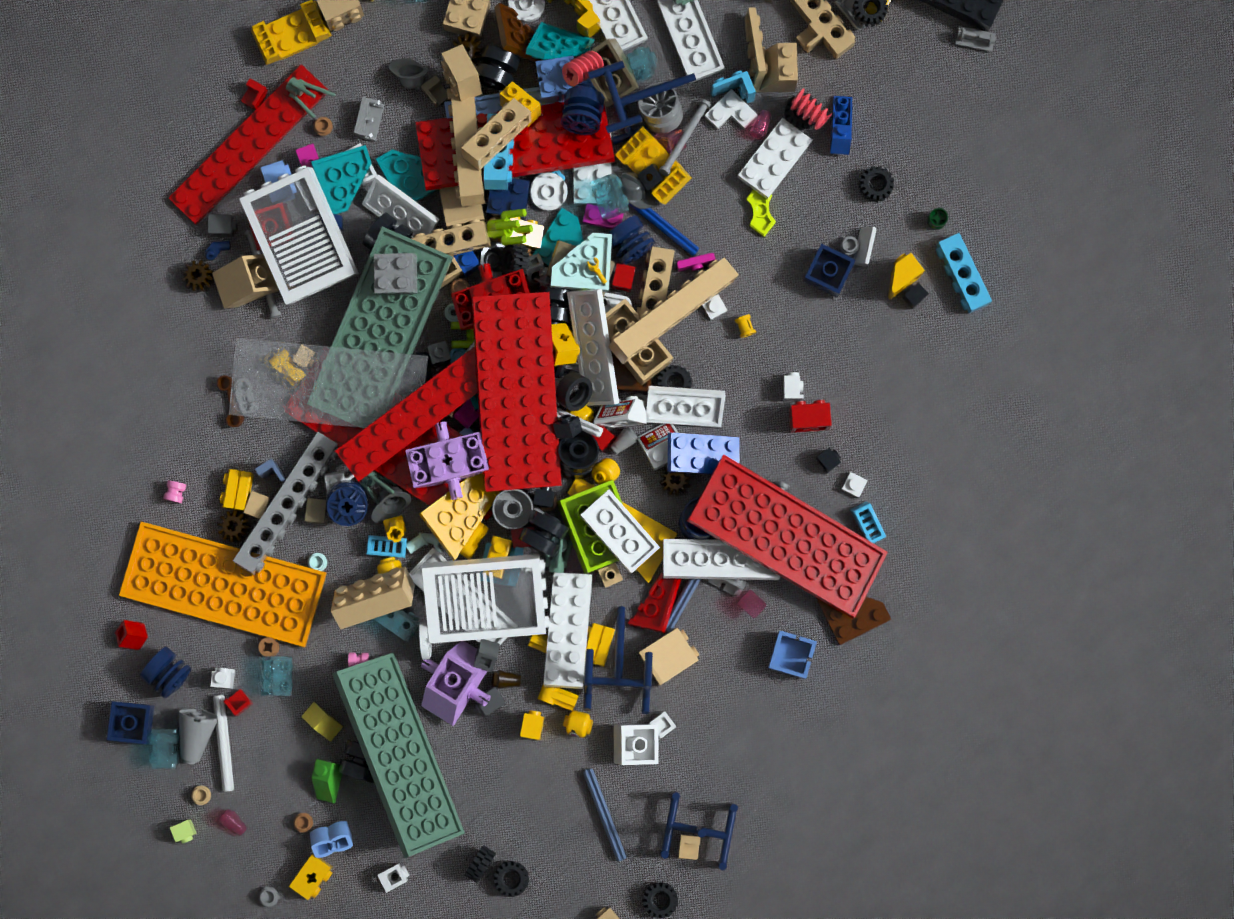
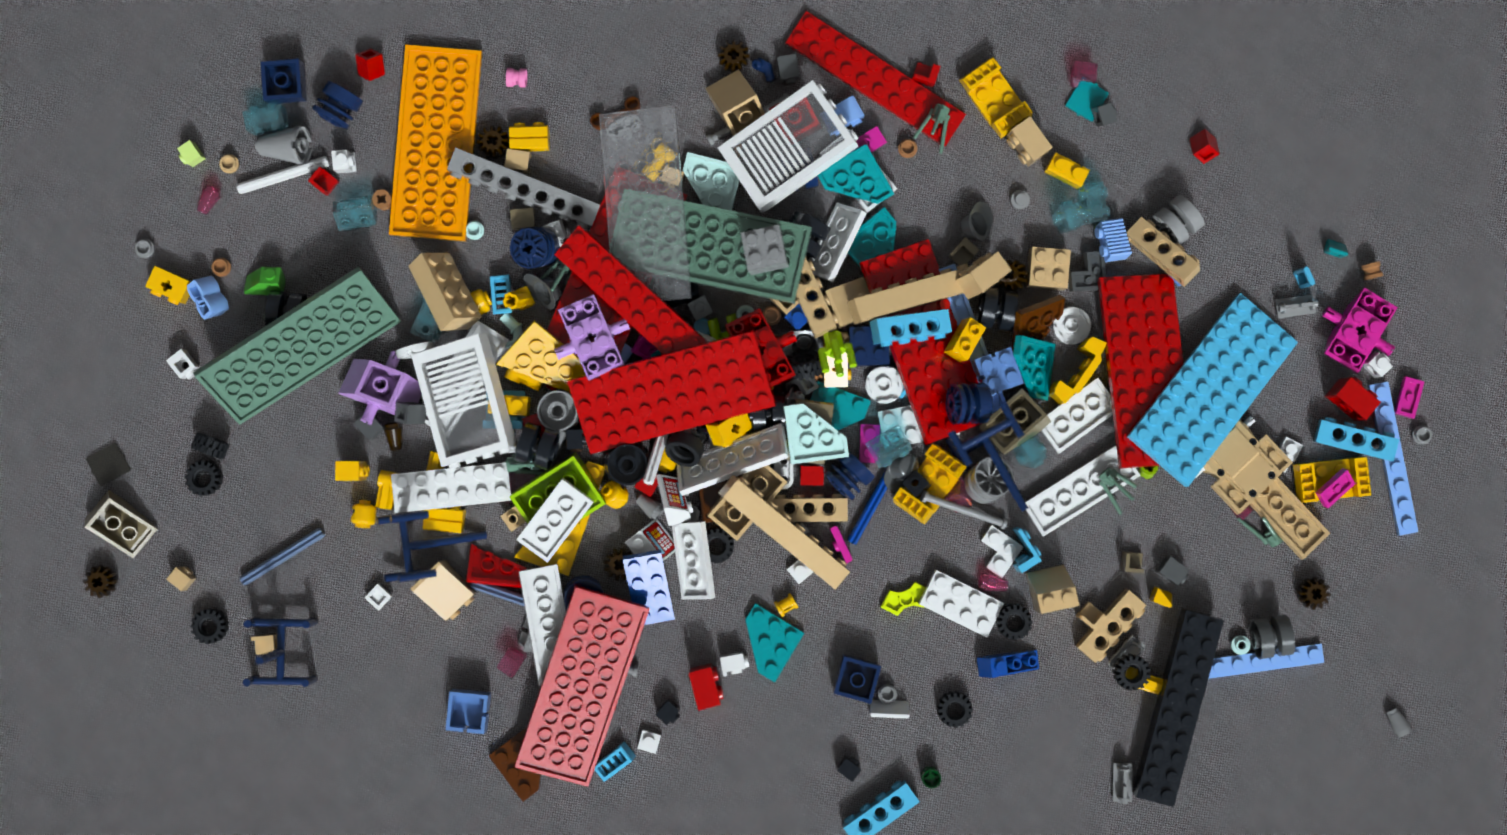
camera: 80 degrees right, 5 degrees up
(268, 469) = (556, 171): sand blue panel -> none
(315, 319) = (711, 180): none -> light aqua plate
(322, 721) = (321, 265): light yellow slope -> none
(353, 659) = (384, 288): bright pink wheel -> none
(369, 119) = (923, 192): light grey hinge -> none
(394, 28) = (1020, 199): none -> light grey plate
(494, 143) = (899, 311): tan brick -> none
(567, 426) = (646, 449): black plate -> none
(577, 69) = (1009, 391): coral piece -> none
(596, 269) = (807, 449): yellow hand -> none
(635, 744) = (353, 574): white slope -> none
(755, 51) = (1048, 570): tan wing -> none
(777, 347) = (771, 641): none -> teal plate
(810, 110) = (1015, 630): coral piece -> none
(904, 273) = (866, 753): yellow slope -> none

